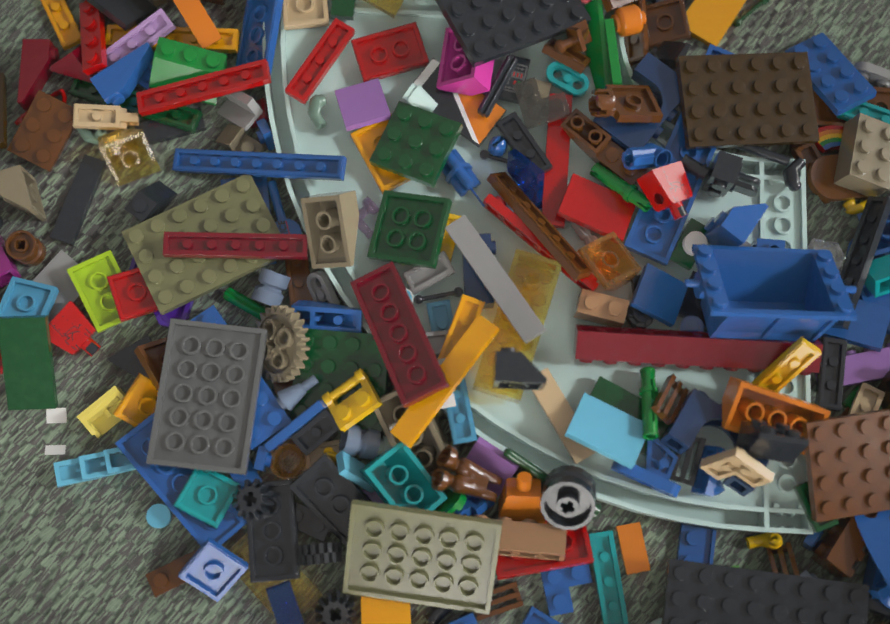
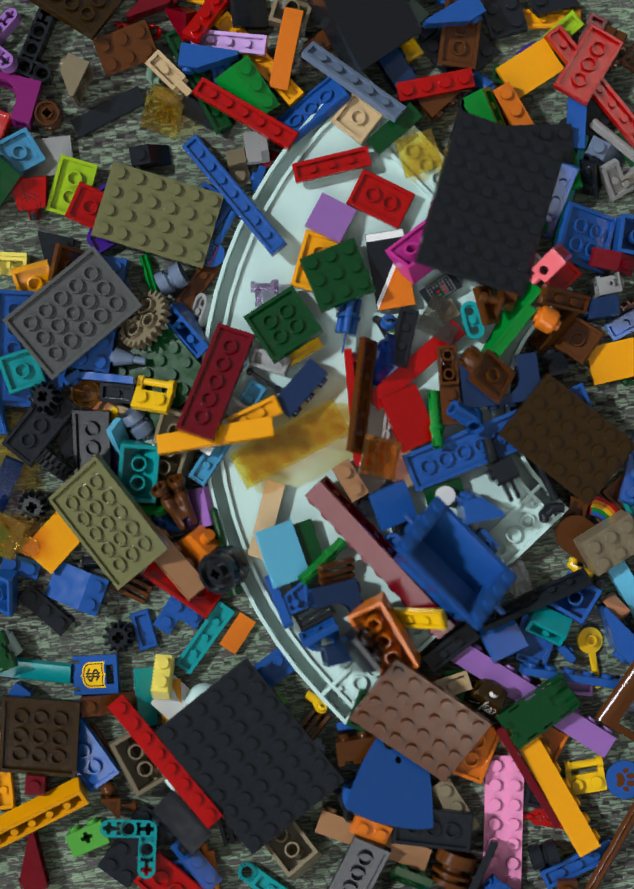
camera: 40 degrees right, 10 degrees up
(235, 245) = (171, 236): dark red plate -> none
(314, 110) = (298, 193): sand green arm -> none
(331, 228) = (237, 279): dark tan slope -> none
(419, 98) = (367, 248): light aqua cone -> none
(495, 279) = (301, 404): light grey tile -> none
(497, 86) = (423, 285): black axle -> none
(516, 371) = (256, 470): black slope -> none
(667, 188) = (458, 448): red torso -> none
(737, 463) = (331, 642): tan plate -> none

